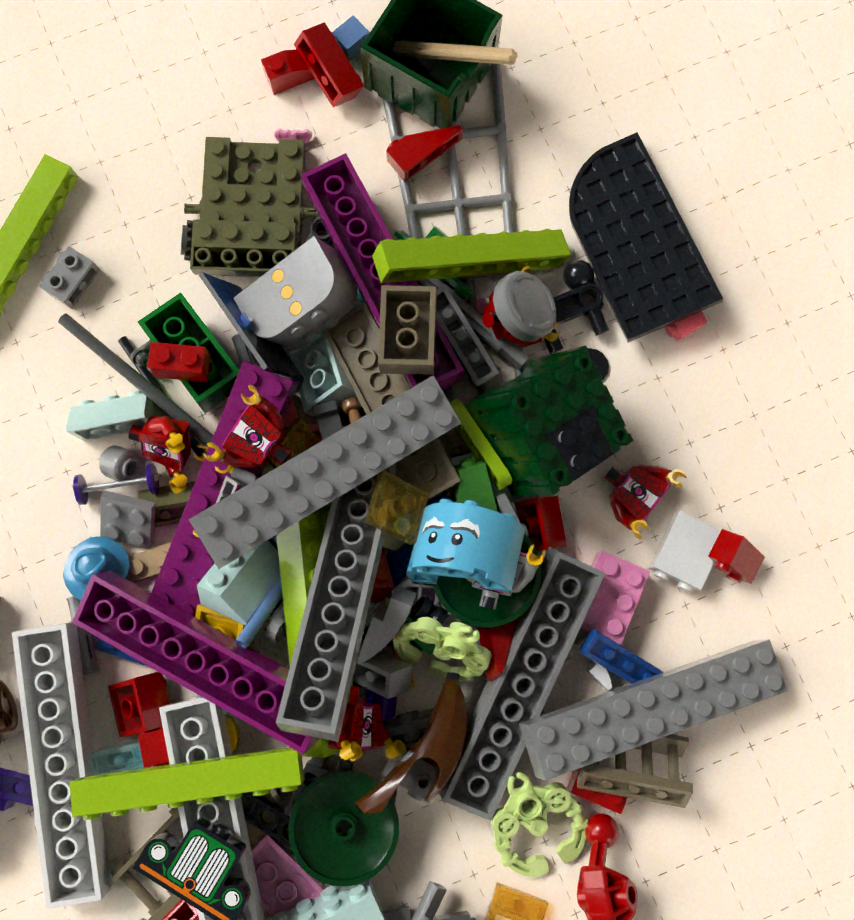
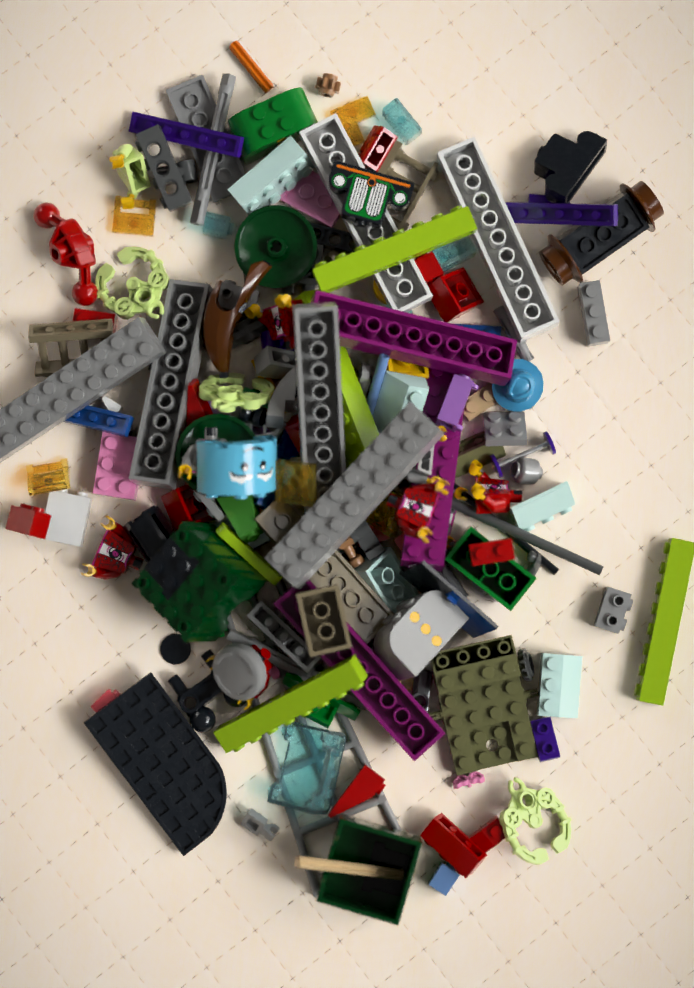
camera: 165 degrees right, 5 degrees up
(160, 211) = (559, 685): none -> light aqua slope
(171, 562) = (455, 402): none -> medium lavender brick
(191, 154) = (545, 739): none -> dark purple plate
(235, 83) = (531, 814): none -> yellowish green piece
(411, 874) = (218, 226): none -> clear light blue brick
(472, 184) = (308, 768): none -> clear light blue windscreen
(545, 149) = (258, 824): none -> light grey plate
(589, 503) = (149, 531): none -> black cylinder
(698, 600) = (48, 481): none -> clear yellow plate

